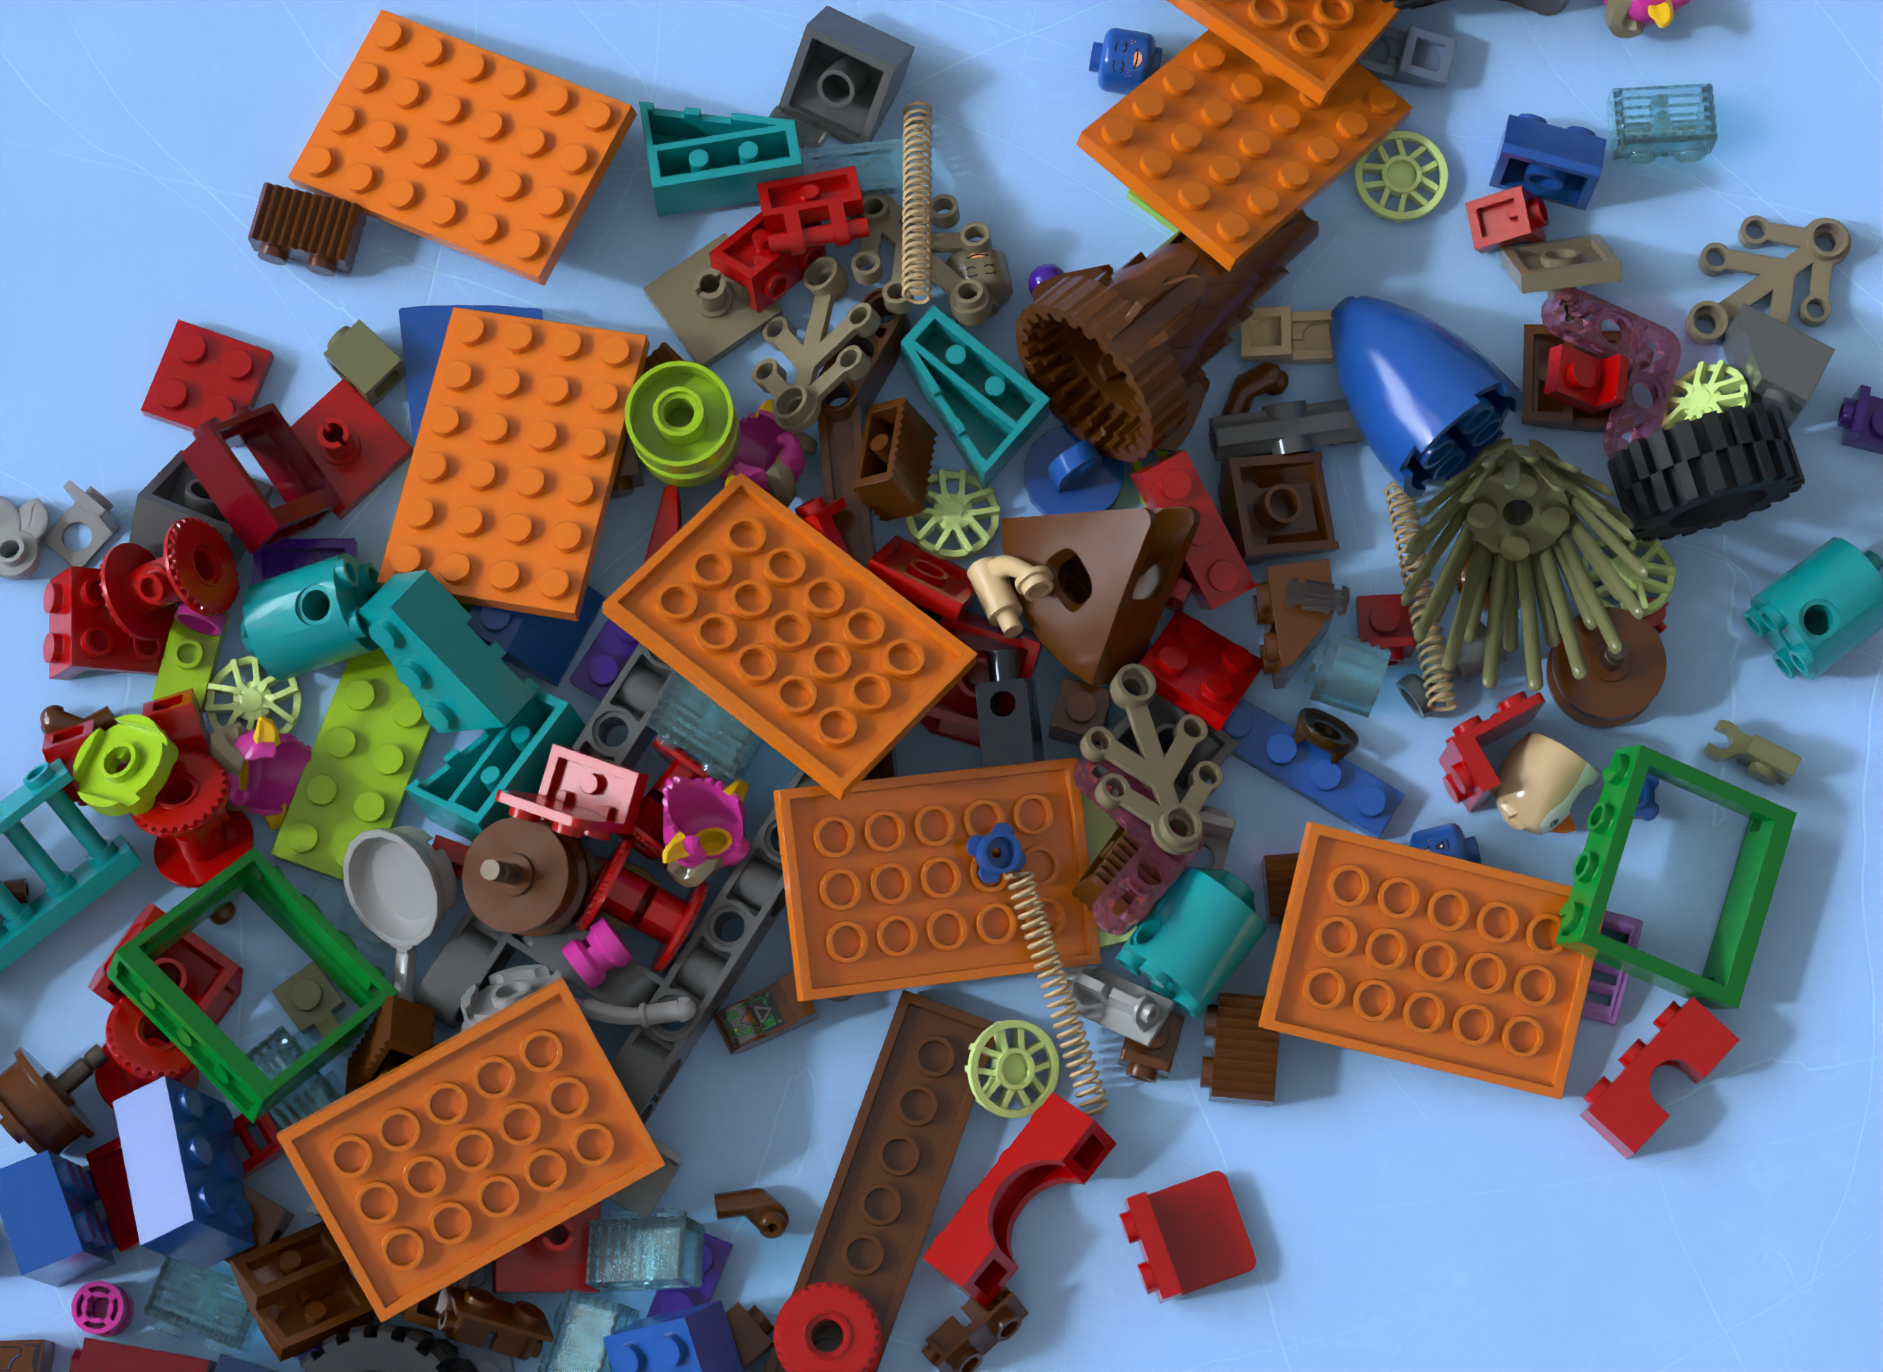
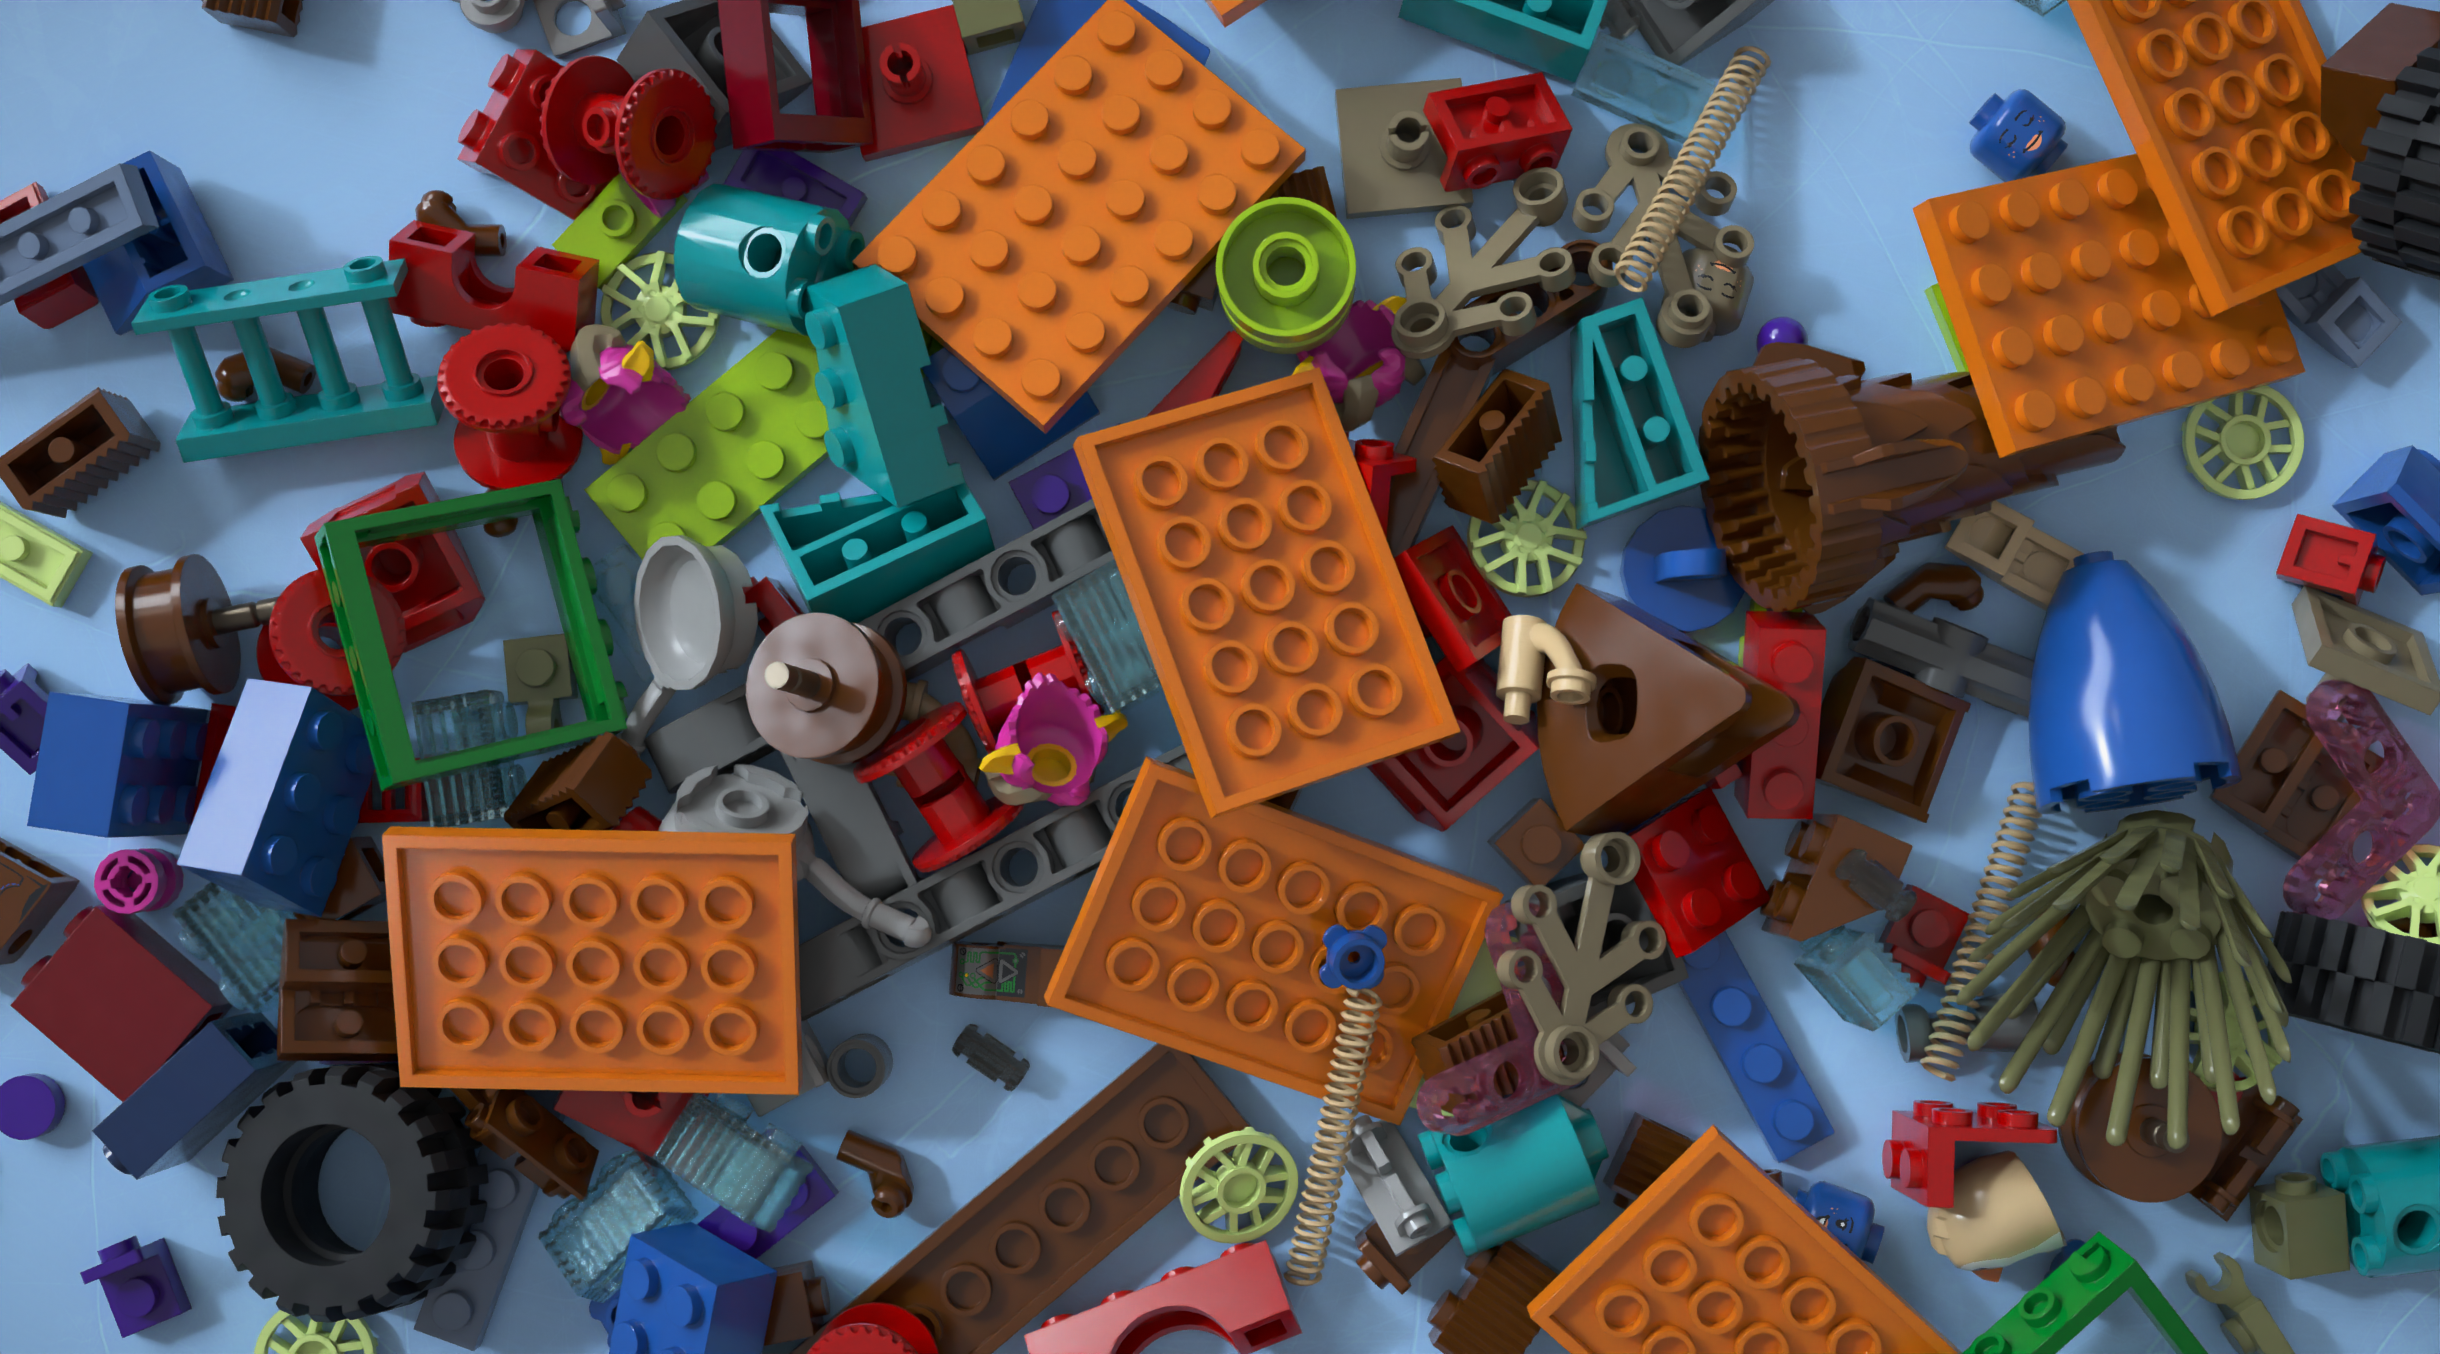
camera: 30 degrees right, 10 degrees up
(136, 786) = (459, 344): lime plate -> none
(581, 795) = (931, 638): bracket -> none
(597, 953) = (857, 816): dark pink wheel -> none
(687, 1123) = (843, 1082): none -> dark grey beam
(786, 1084) = (990, 1057): none -> clear smoke piece
(809, 200) = (1576, 97): red plate -> none
(1010, 737) = (1442, 832): black torso -> none
(1325, 733) = (1803, 1033): dark brown piece -> none
(1585, 379) = (2315, 798): red bracket -> none
(1689, 646) = (2247, 1152): none -> reddish brown hinge
(1754, 672) = (2299, 1226): none -> olive brick

